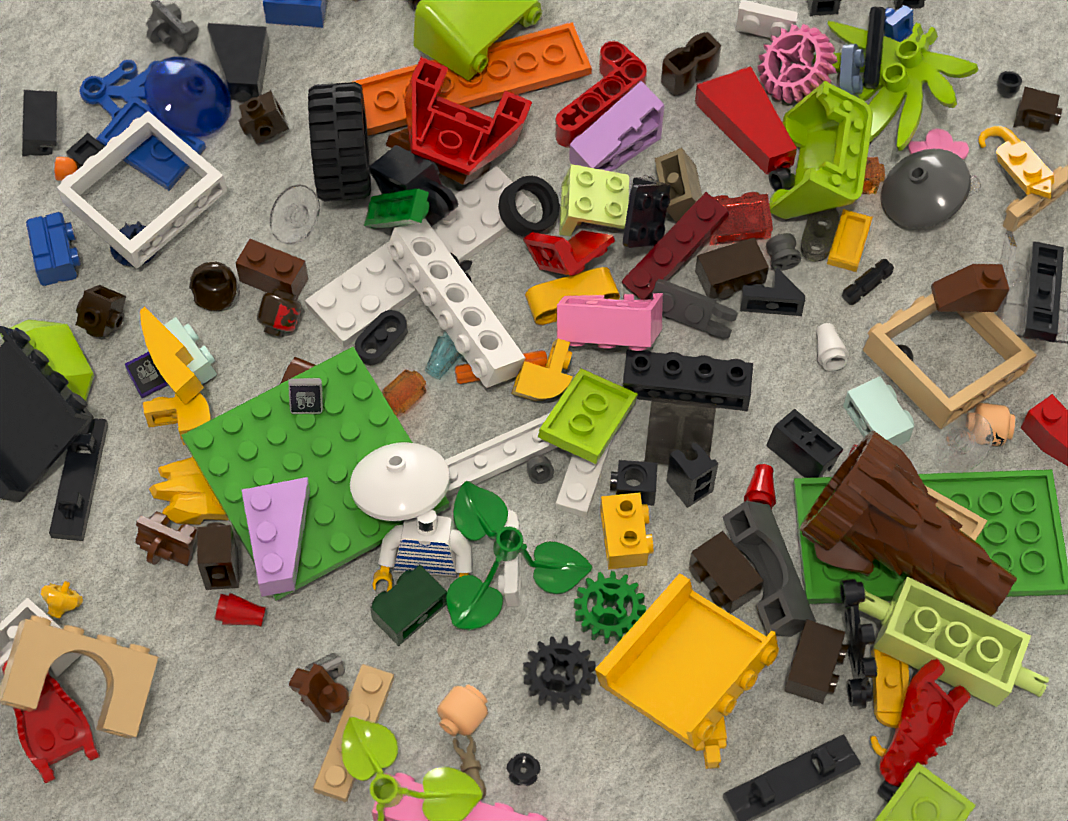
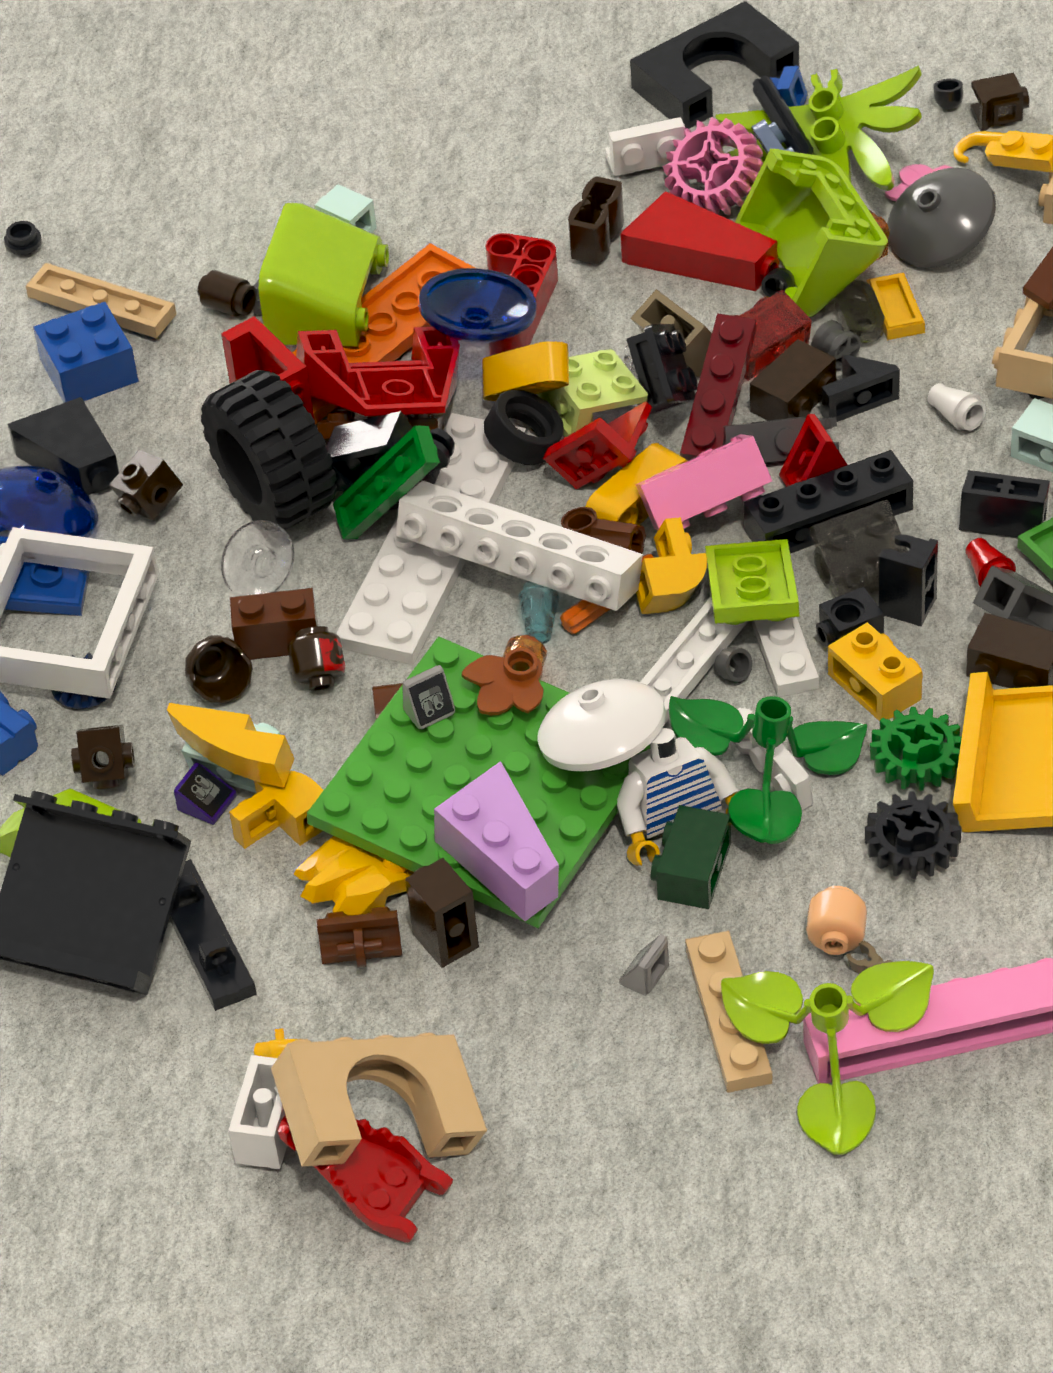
camera: 25 degrees left, 15 degrees down
(238, 611) = (501, 961): red cone -> none
(319, 691) = (664, 981): reddish brown hips -> none
(362, 411) = (506, 681): none -> dark orange plate
(378, 337) = (446, 622): black plate -> none
(381, 65) = (254, 348): none -> red panel
(520, 321) = (622, 534): none -> reddish brown piece
(527, 761) = (946, 936): black plate -> none
(553, 97) = (477, 305): none -> clear blue dish
(554, 165) = (527, 368): none -> yellow beam
(620, 132) = (575, 301): lavender wedge -> none
(701, 337) = (811, 454): none -> red slope
(867, 281) = (945, 332): black axle -> none

